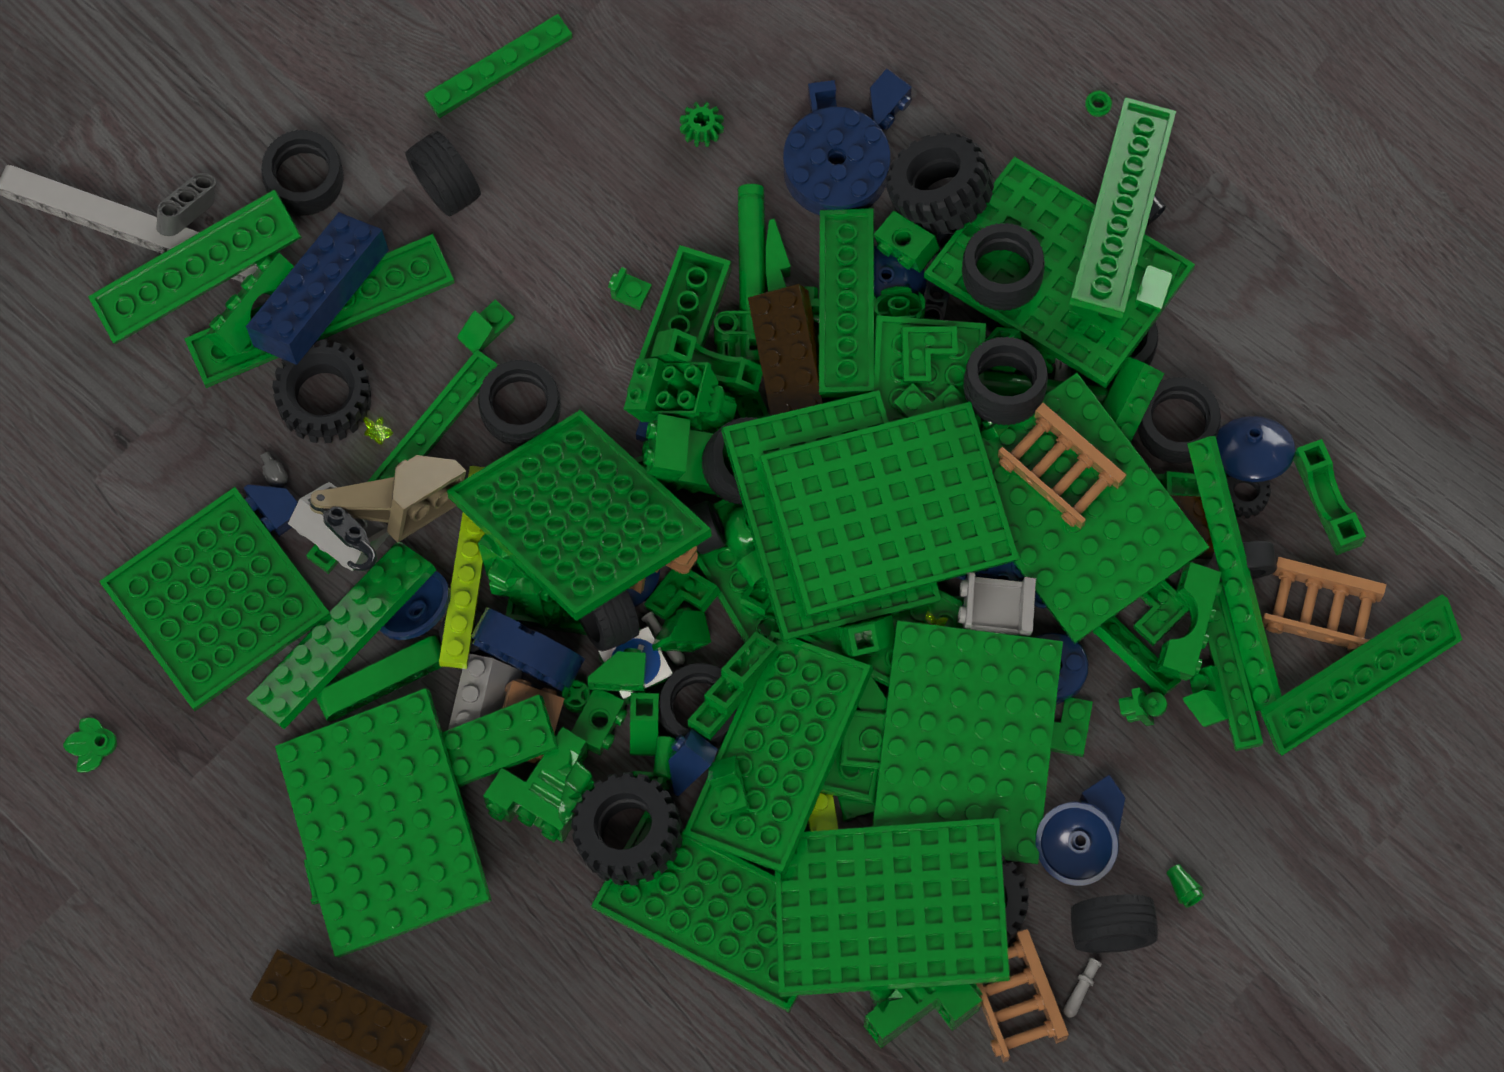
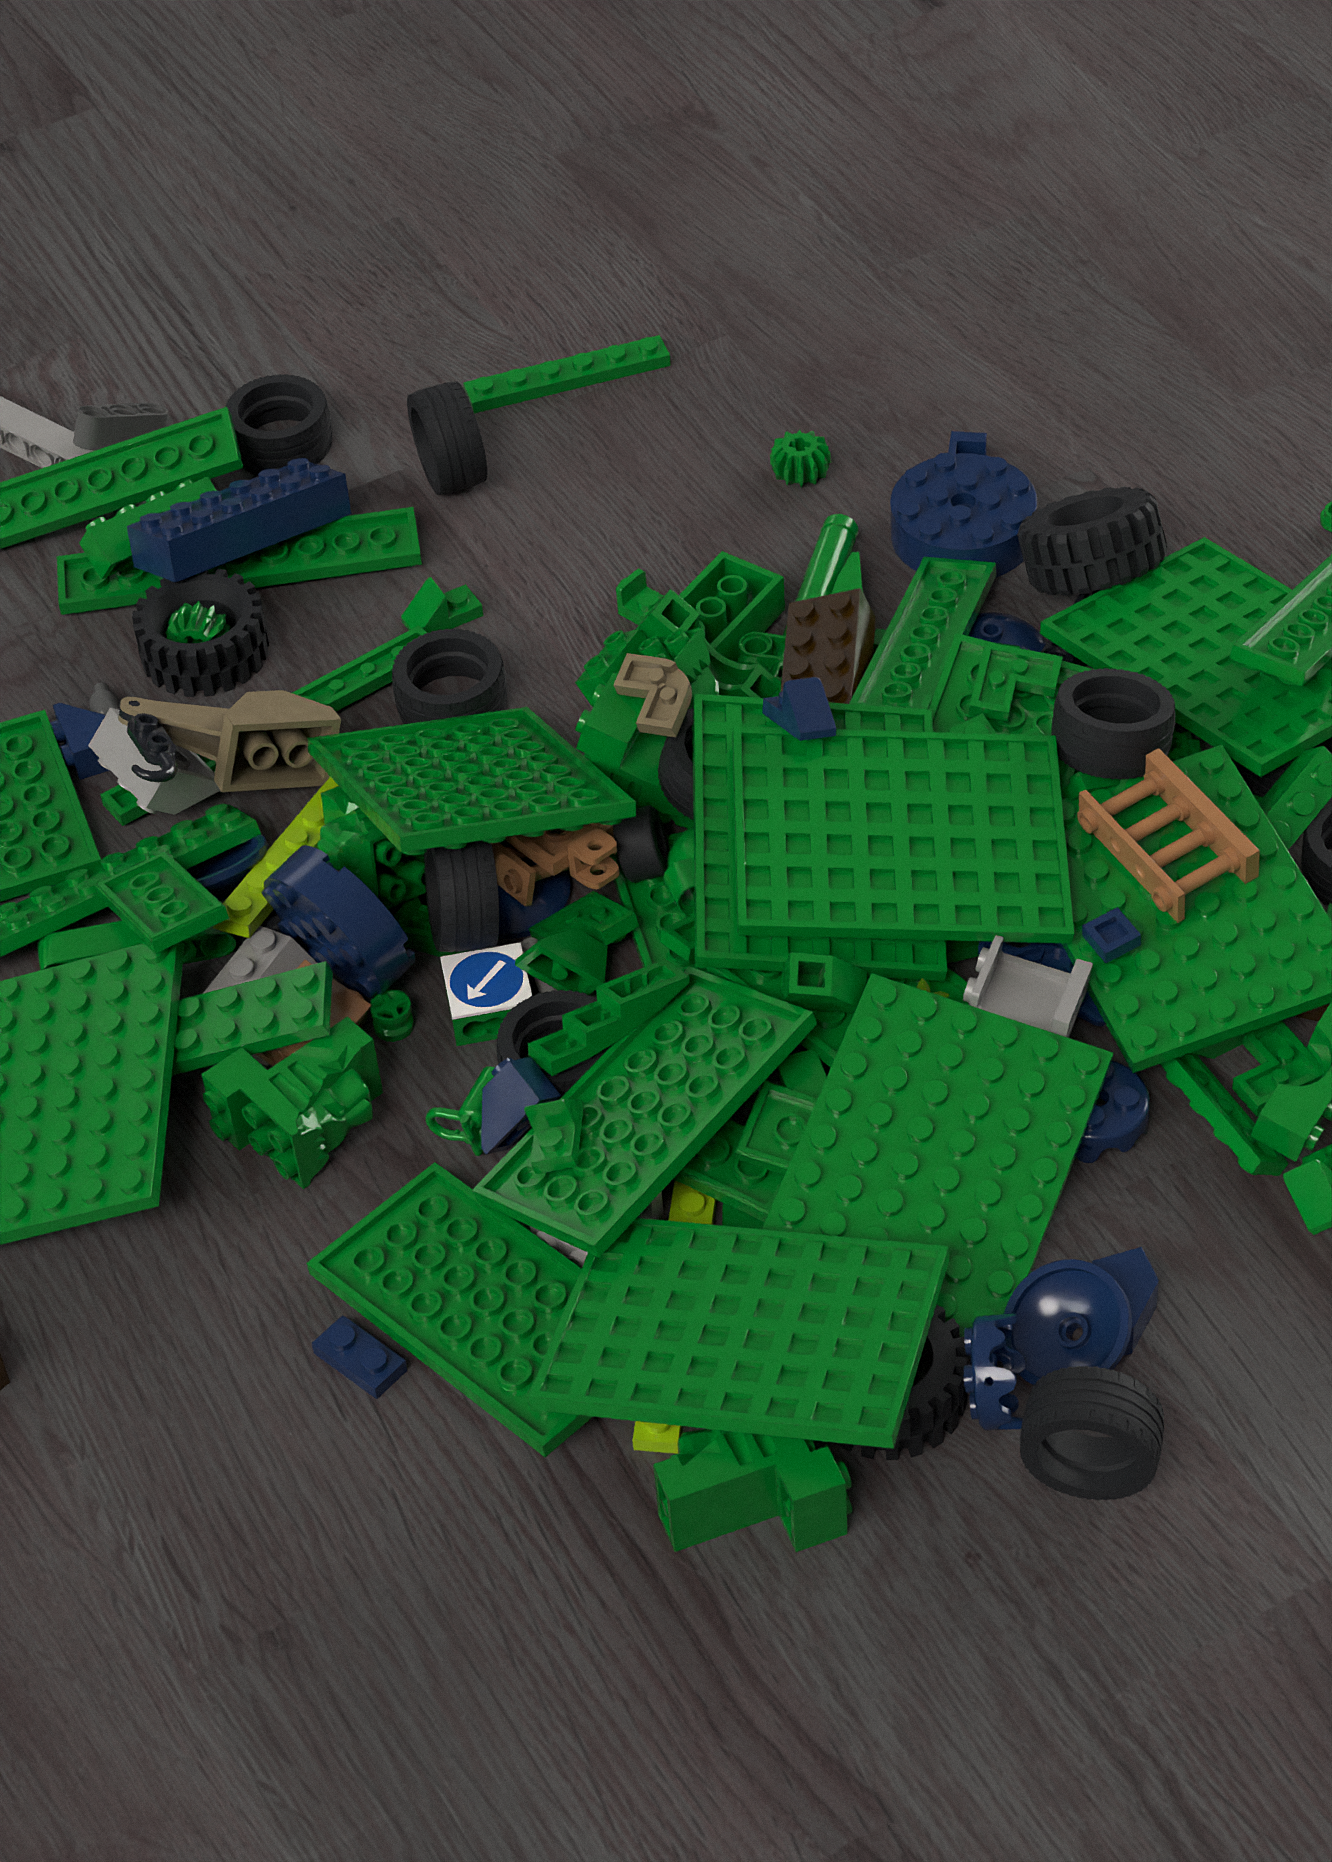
camera: 20 degrees right, 25 degrees down
(321, 394) = (196, 624): none -> green gear
(377, 430) = (252, 684): clear neon green plant -> none
(401, 660) = (161, 902): none -> green tile
(600, 705) = (413, 1046): green brick -> none
(605, 802) = (401, 1198): black tyre -> none
(621, 672) = (456, 978): green slope -> none
(644, 723) = (469, 1051): green slope -> none
(645, 962) = (359, 1357): none -> dark blue plate
(704, 429) = (665, 690): none -> dark tan plate
(802, 434) = (802, 709): none -> dark blue slope
(888, 97) = (1056, 467): dark blue slope -> none
(896, 231) = (1026, 594): green brick -> none
(1008, 238) = (1144, 644): black tyre -> none
(1042, 553) = (1111, 935): none -> dark blue plate
(1043, 1000) = (950, 1532): medium nougat fence -> none
(1044, 903) = (983, 1378): none -> dark blue plate
(1071, 734) = (1104, 1195): green plate -> none
(1085, 980) = (1028, 1524): light grey piece -> none
(1142, 706) = (1215, 1174): green hips -> none
(1185, 887) = (1226, 1430): green cone -> none

